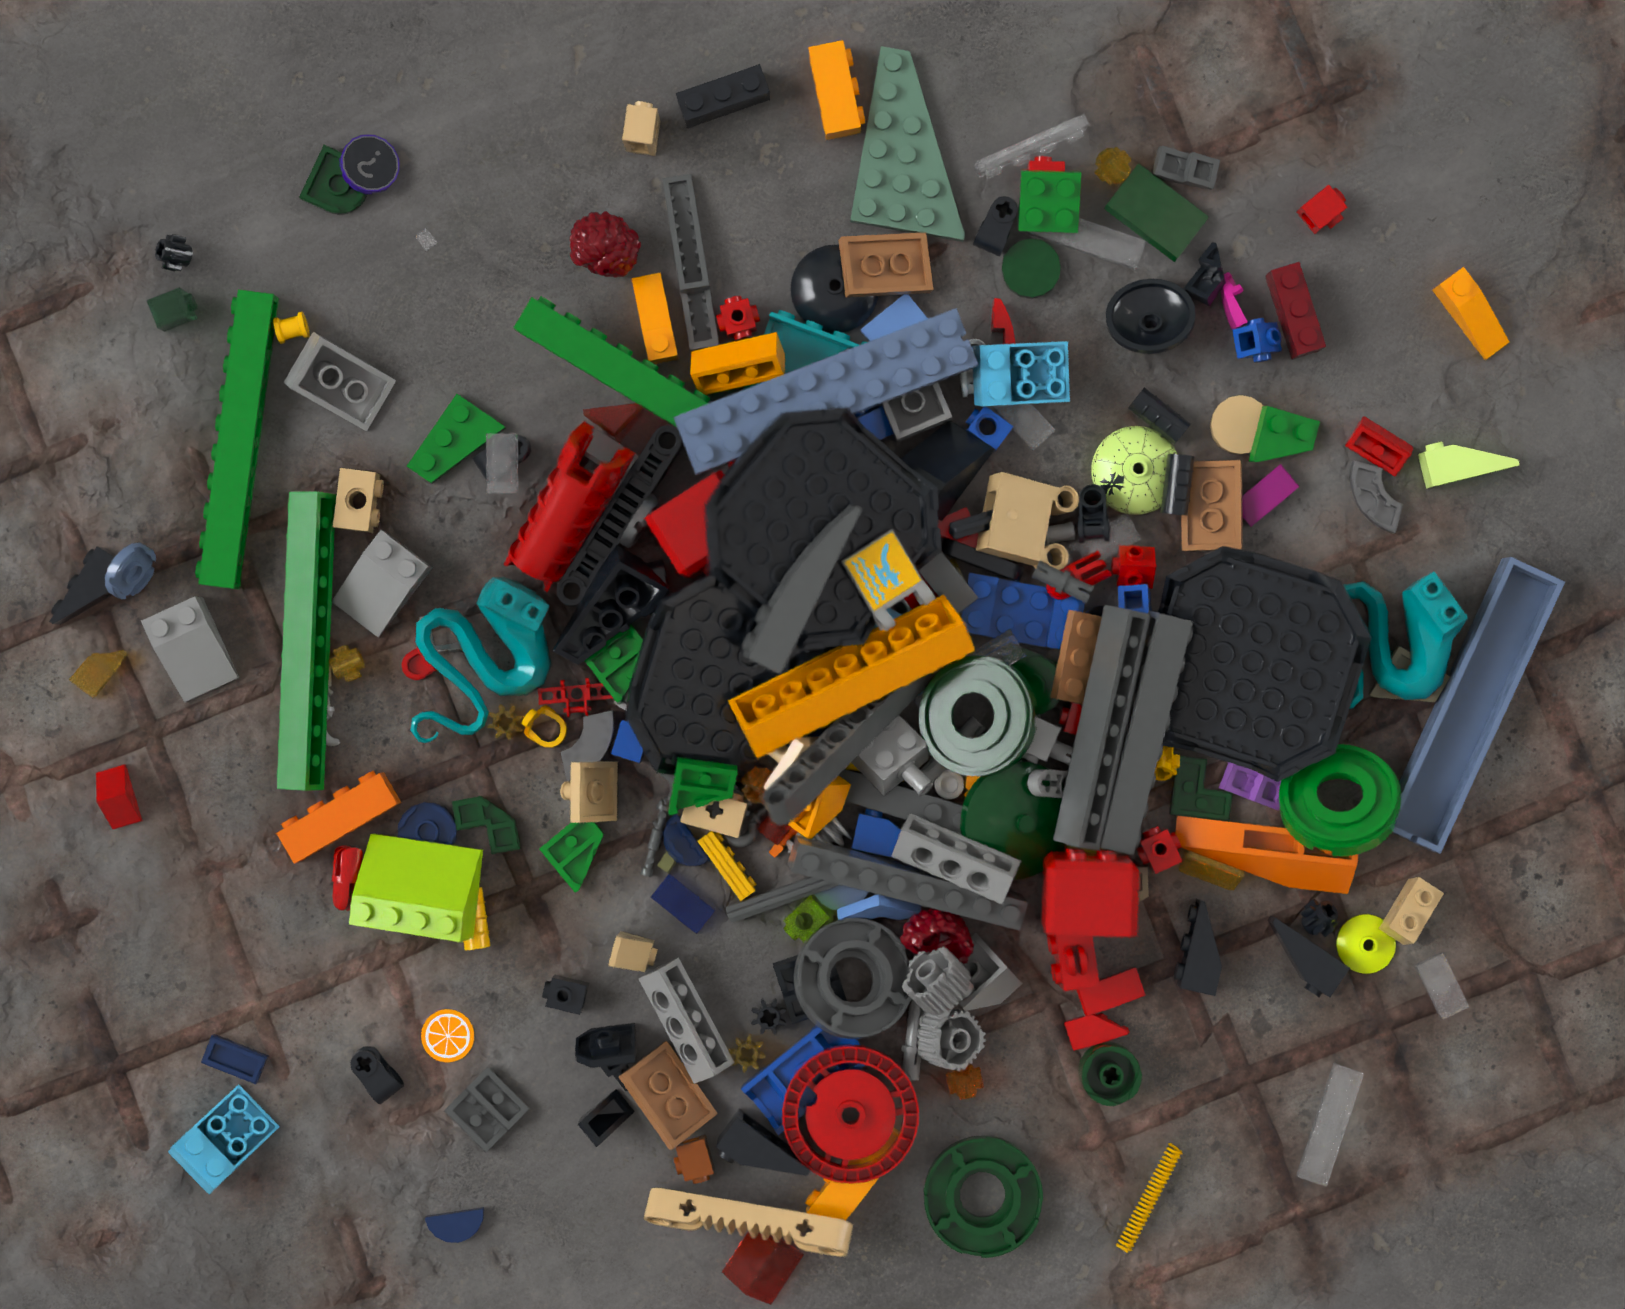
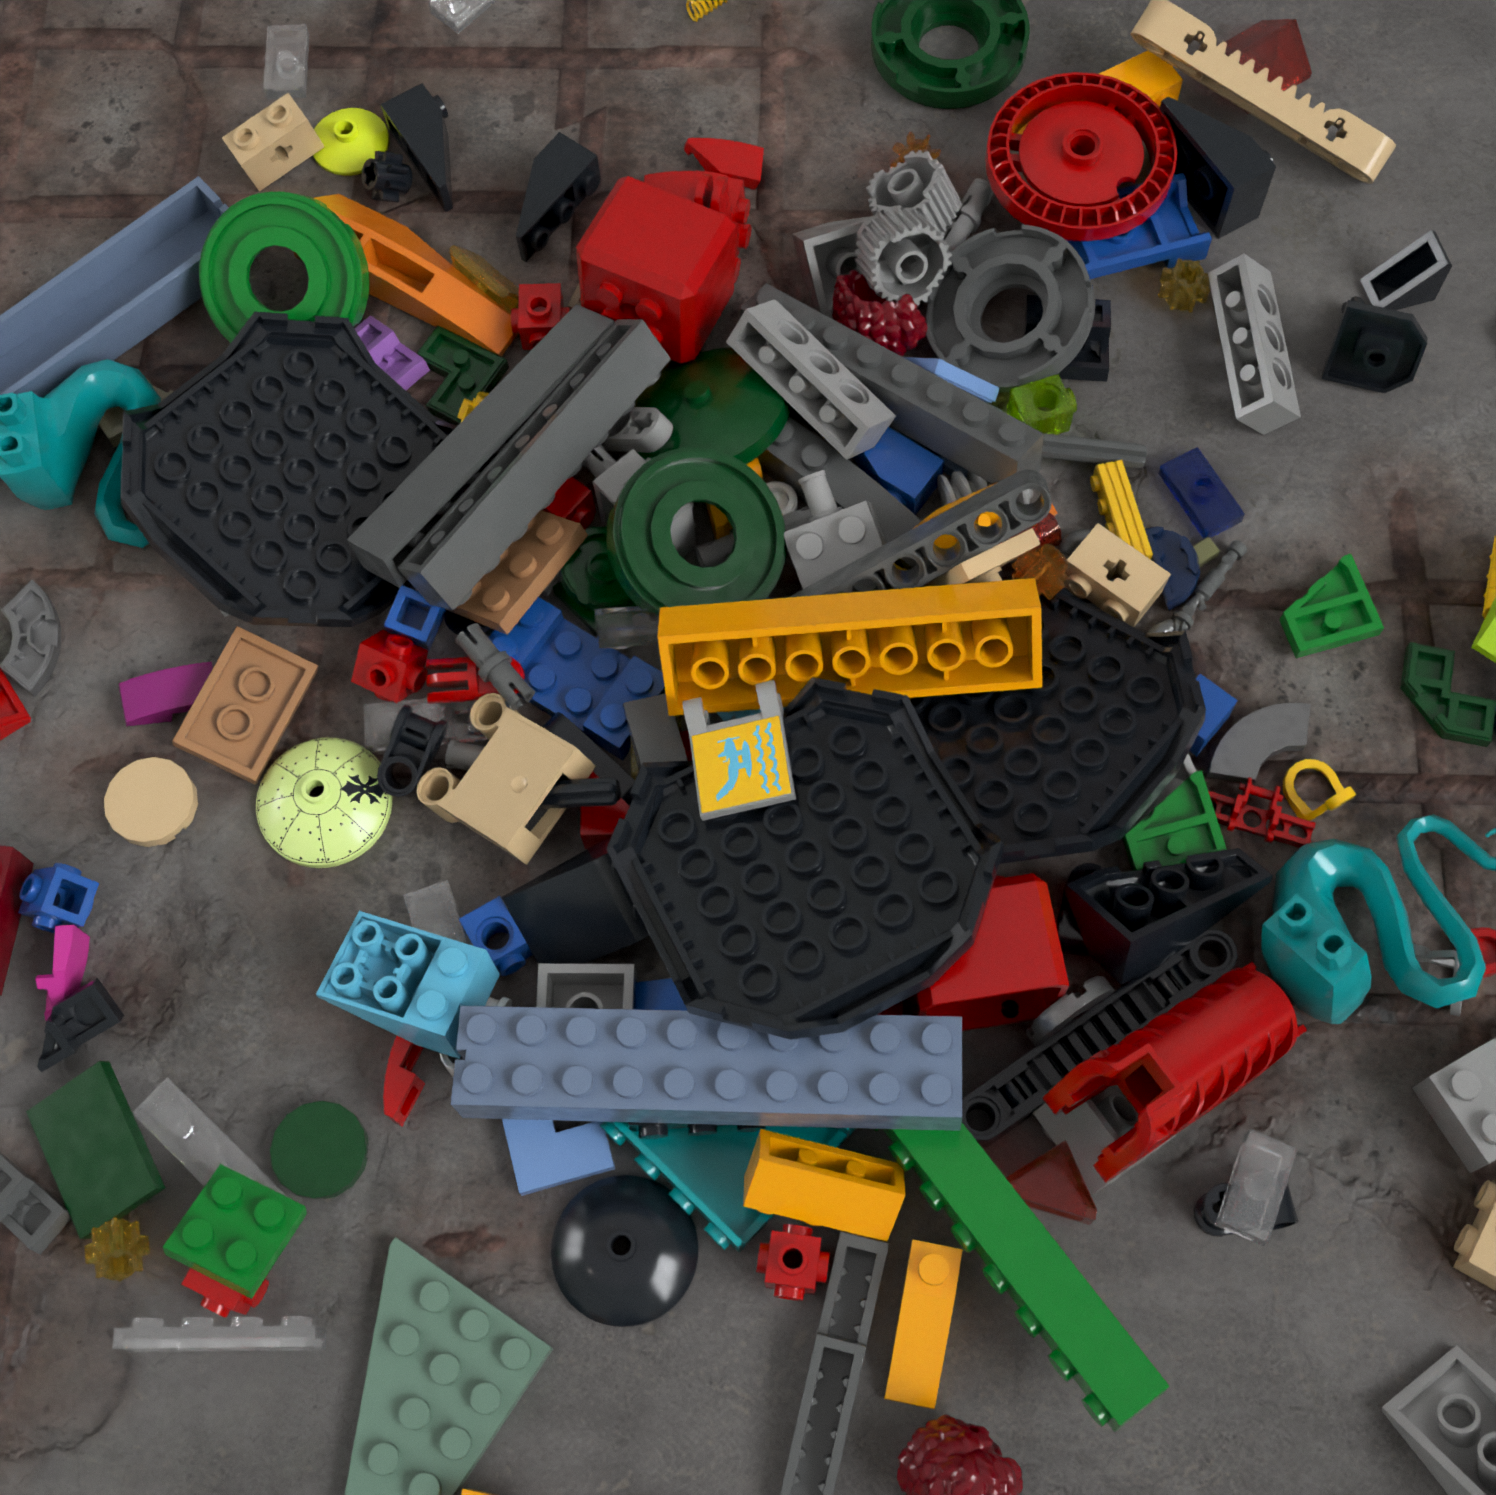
camera: 155 degrees left, 20 degrees down
(452, 439) = (1315, 1271): green wing -> none
(512, 726) = (1385, 809): clear yellow gear -> none
(565, 994) = (1407, 437): black brick -> none
(592, 791) = (1282, 666): tan tile -> none
(632, 952) = (1299, 449): tan slope -> none
(668, 1095) = (1310, 269): medium nougat plate -> none
(694, 1160) = (1301, 194): dark orange brick -> none
(700, 783) = (1123, 601): green wing -> none
(765, 1023) = (1138, 316): black gear -> none
(796, 595) = (877, 770): dark grey slope -> none
(885, 264) = (529, 1245): medium nougat plate -> none
(995, 230) = (339, 1232): black piece -> none
(1115, 1089) = (731, 98): dark green brick -> none
(1148, 305) = (164, 1009): black dish -> none
(1159, 416) = (250, 855): black axle -> none
(1177, 484) = (274, 746): black axle -> none
(1282, 434) = (103, 759): green wing -> none

